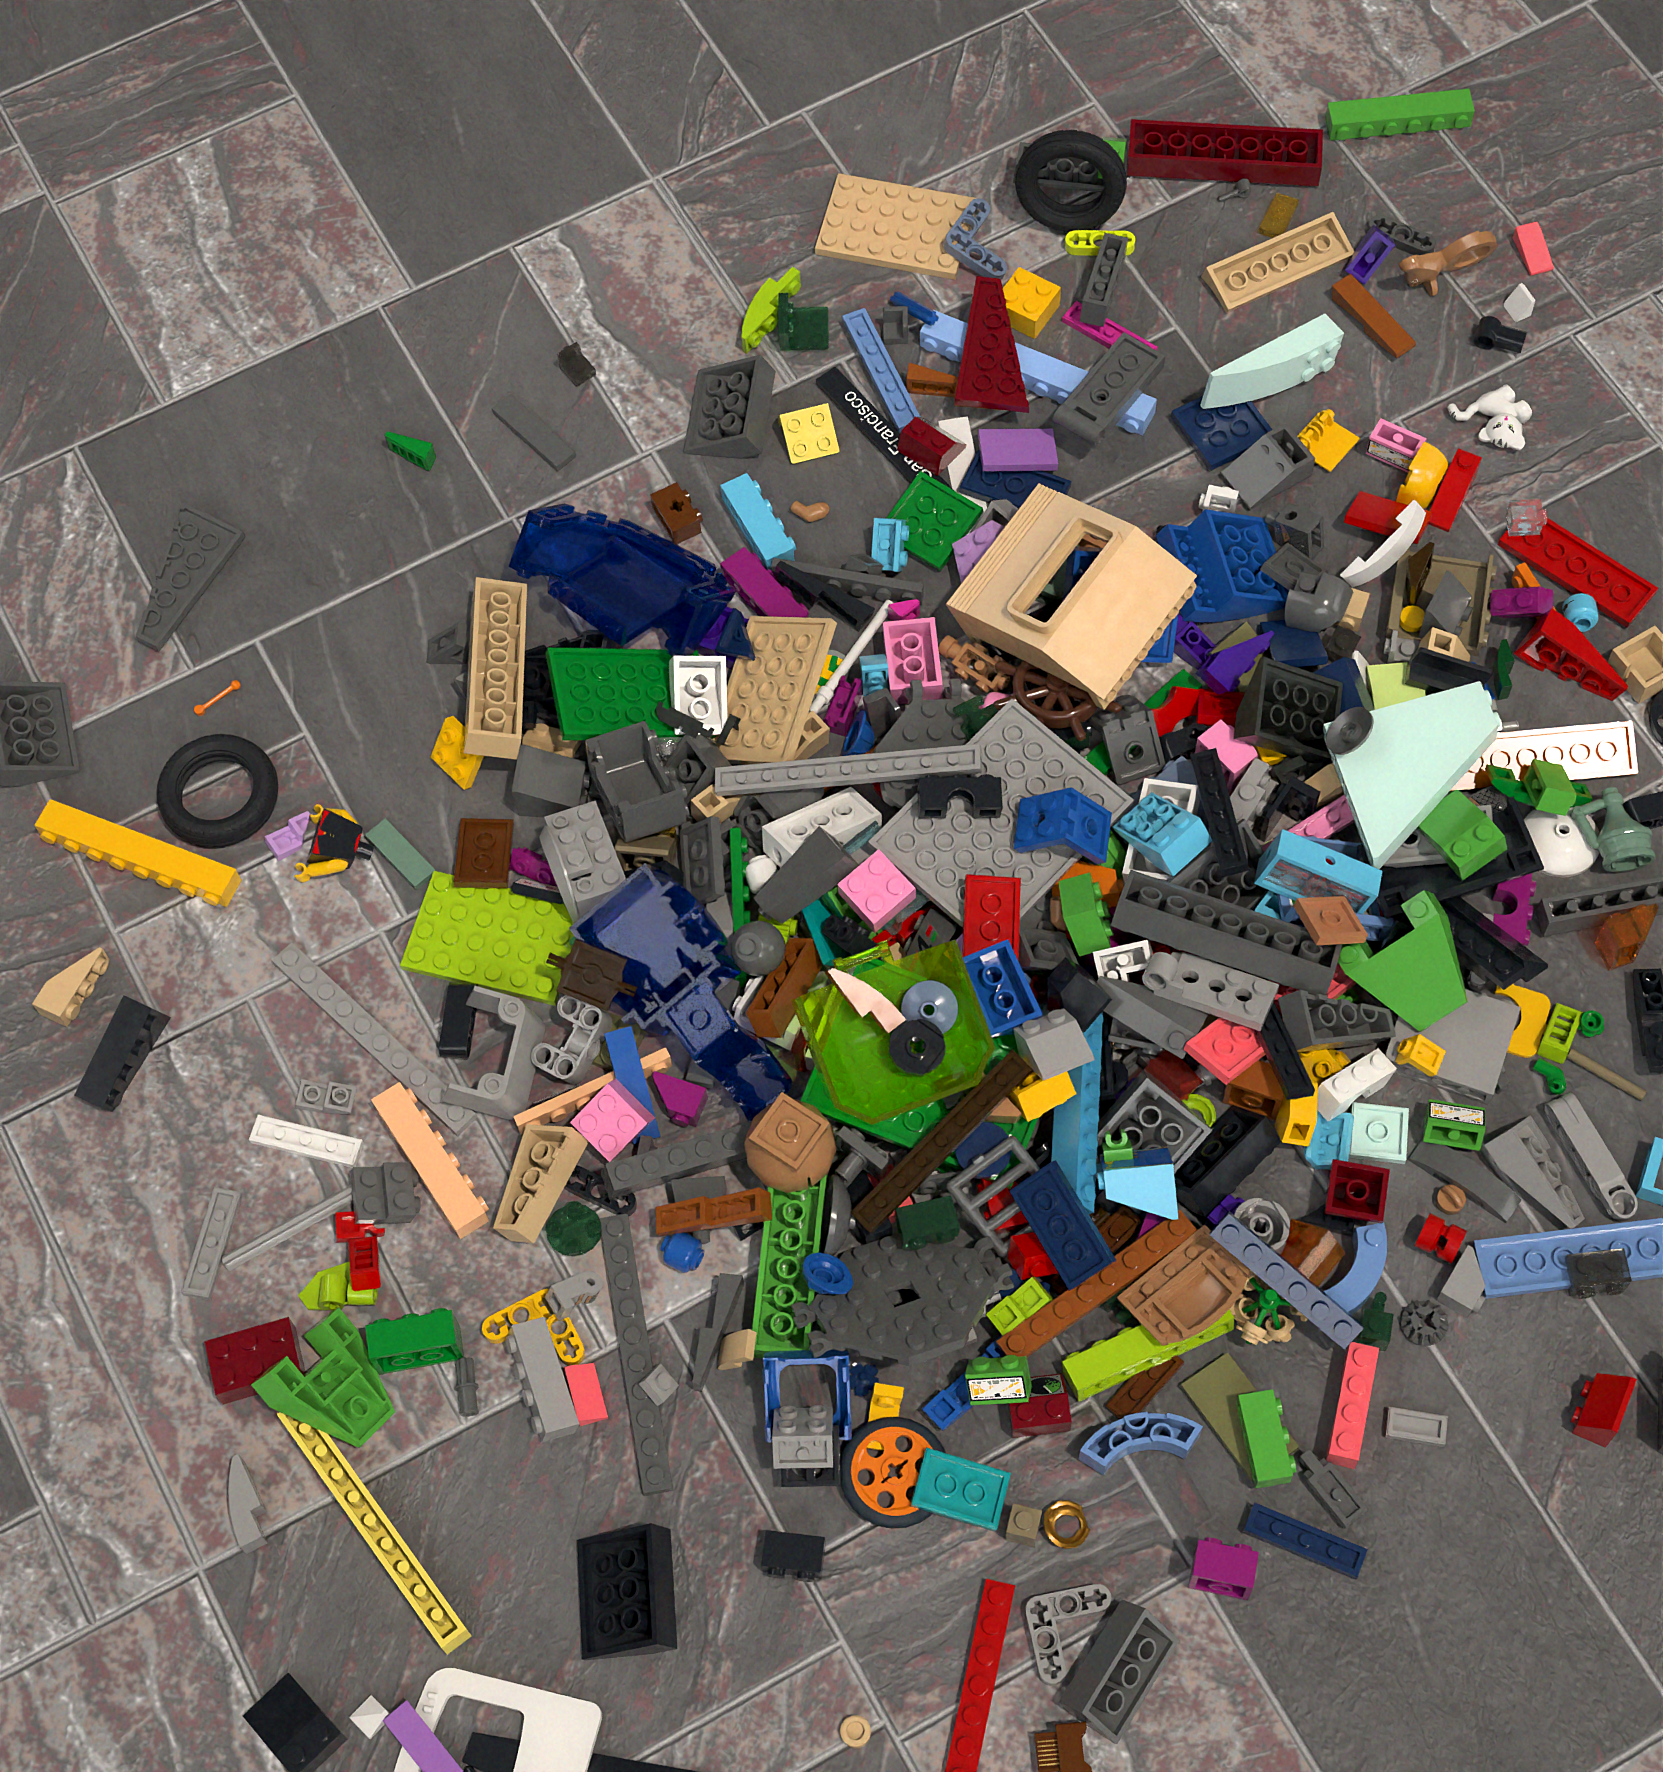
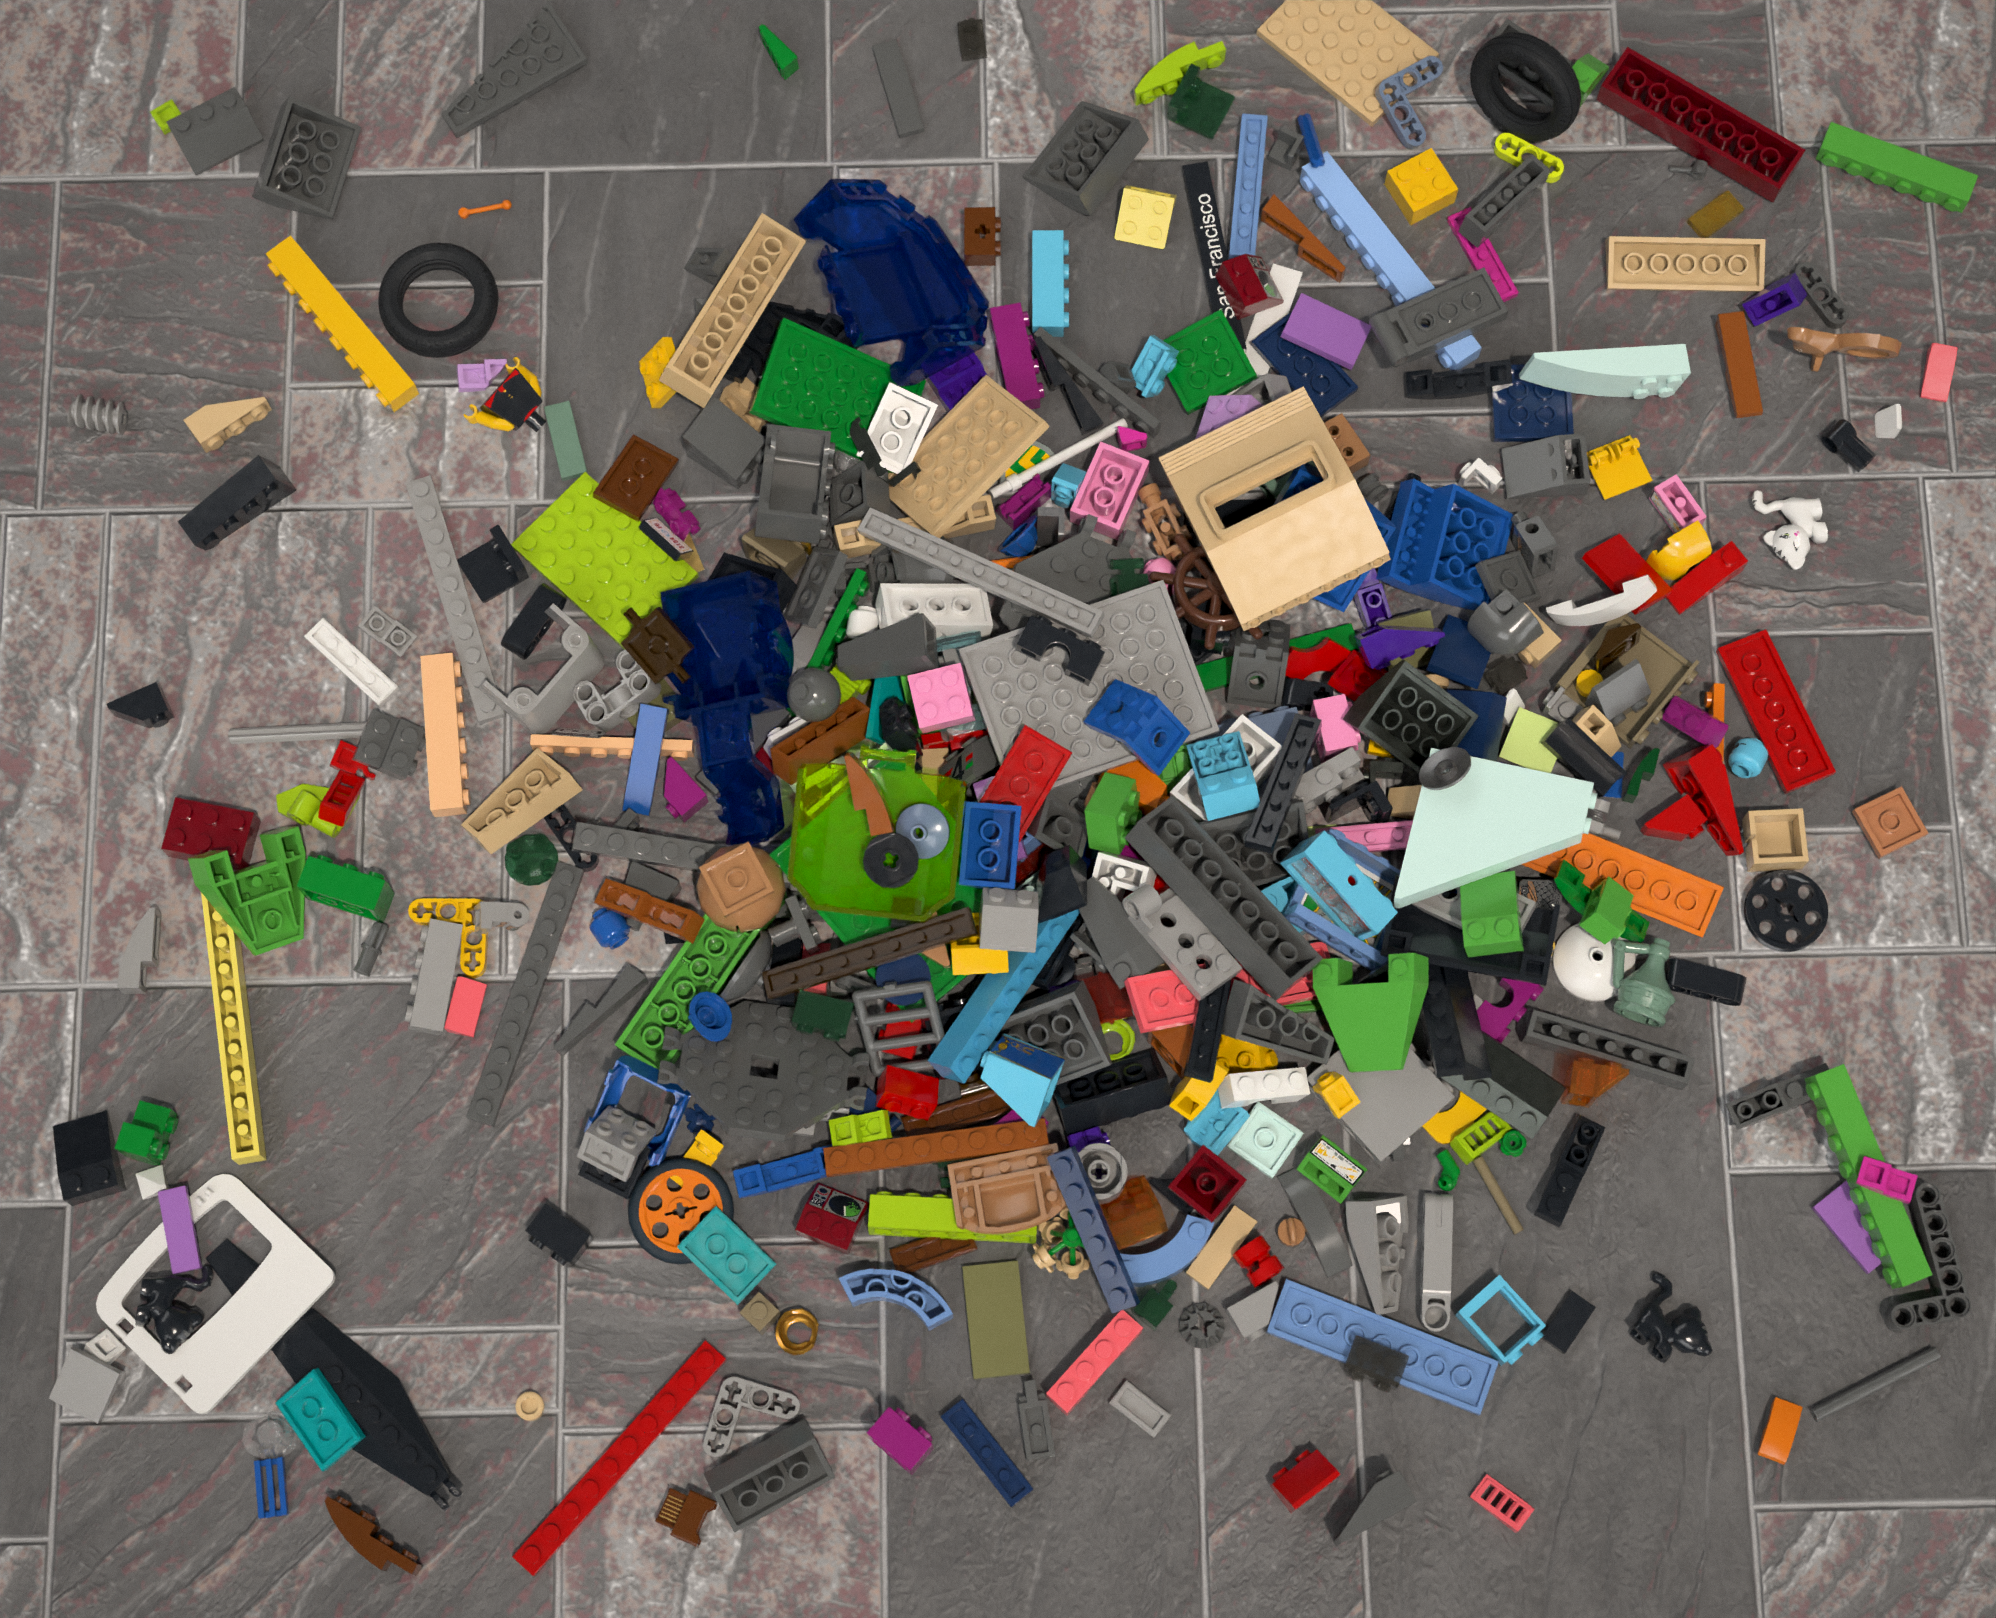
camera: 25 degrees right, 10 degrees up
(127, 1279) = (143, 707): none -> black slope
(212, 1243) = (229, 712): light grey tile -> none
(343, 1671) = (147, 1134): none -> green brick
(395, 990) = (493, 566): none -> black bracket
(580, 845) = (696, 526): light grey piece -> none
(612, 1120) = (611, 782): bright pink brick -> none
(627, 1593) = (408, 1193): black slope -> none
(658, 1384) = (527, 1032): light grey plate -> none
(735, 638) = (961, 388): dark blue tile -> none
(736, 1349) = (606, 1038): tan slope -> none
(812, 512) = (1104, 297): medium nougat arm -> none
(990, 361) = (1346, 232): dark red wing -> none
(998, 1380) = (805, 1182): brick -> none
(1062, 1225) = (929, 1081): dark blue tile -> none
(1118, 1149) = (1018, 1039): bright green tile -> none
(1154, 437) = (1459, 383): none -> black slope
(1265, 1438) = (1002, 1351): bright green brick -> none
(1330, 920) = (1320, 934): nougat plate -> none
(1400, 1245) = (1221, 1247): none -> tan tile
(1525, 517) = (1752, 641): clear brick -> none
(1556, 691) = (1677, 821): none -> red slope
(1572, 977) = (1515, 1092): none -> pearl dark grey slope

